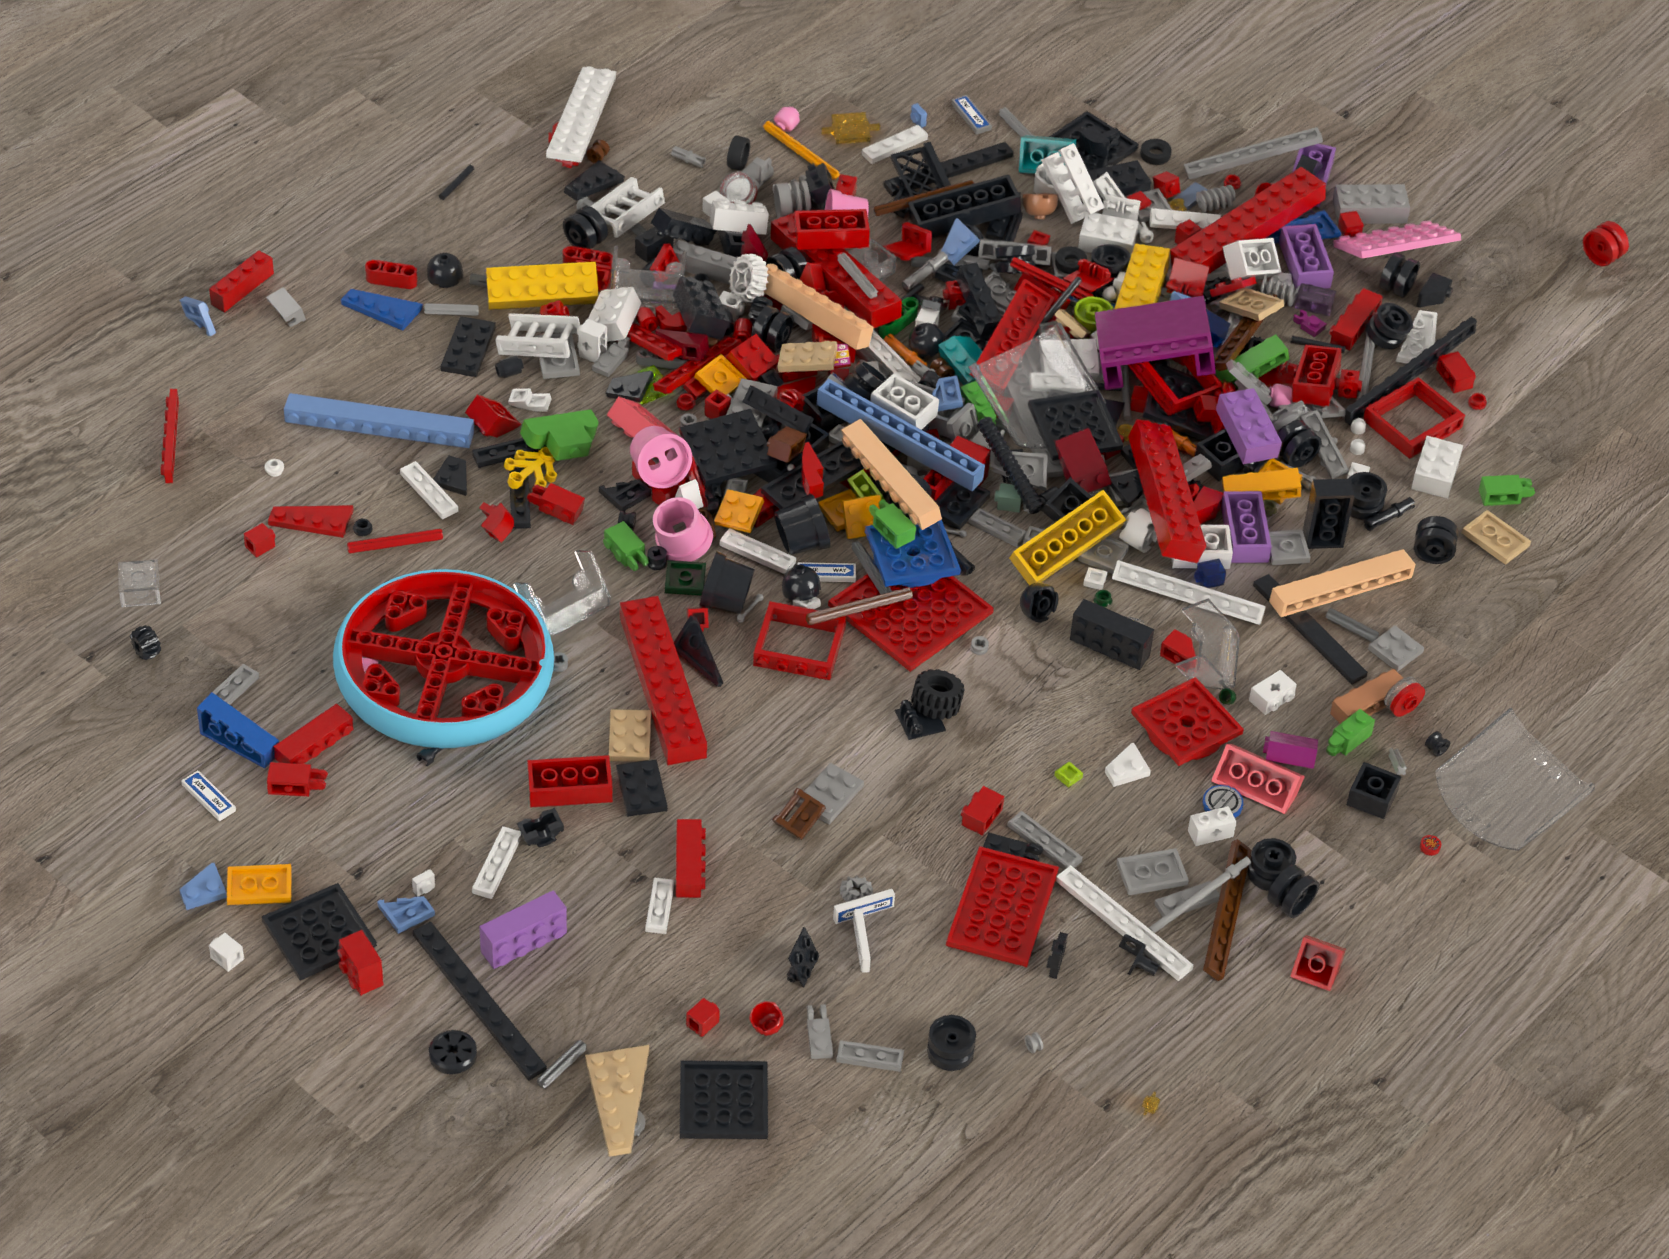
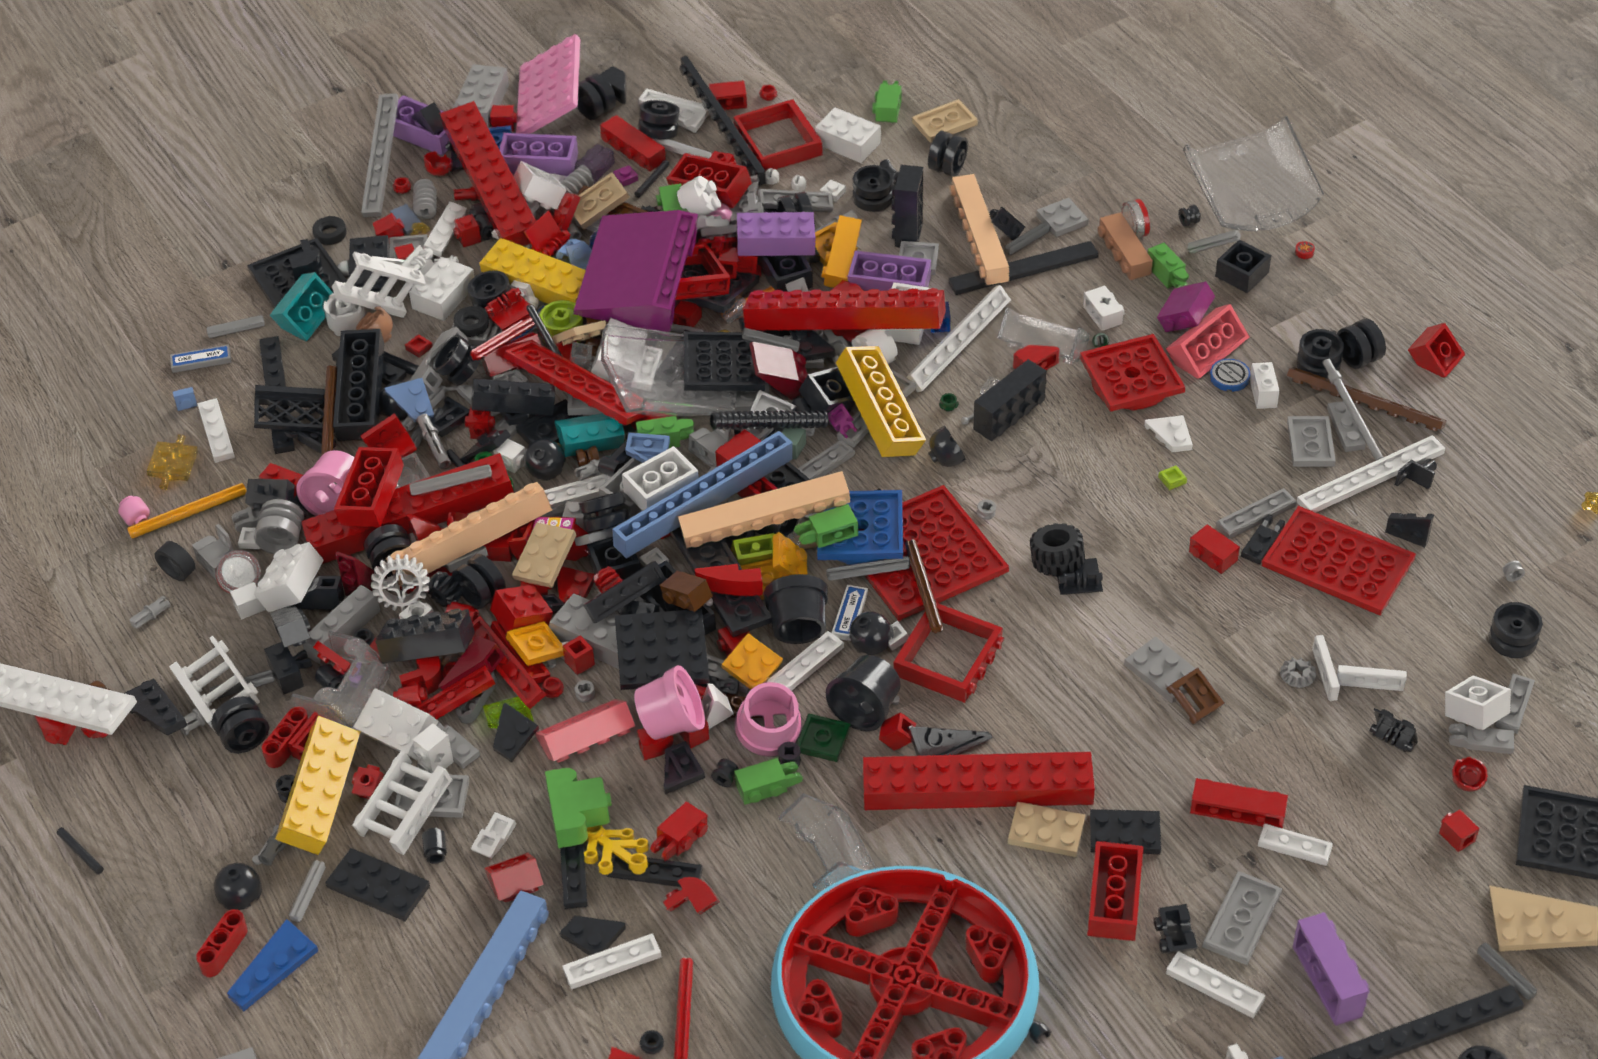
camera: 70 degrees left, 0 degrees up
(572, 876) = (1242, 918): none -> light grey tile
(847, 1013) = (1477, 702): none -> white brick
(908, 355) = (556, 480): orange pin -> none
(963, 423) = (688, 452): light grey plate -> none
(1040, 521) = (841, 420): none -> magenta plate
(1095, 578) = (921, 401): white plate -> none
(1111, 448) = (765, 338): none -> dark grey axle
(1286, 367) = (699, 196): none -> white brick
(1352, 599) = (1006, 223): none -> black hinge

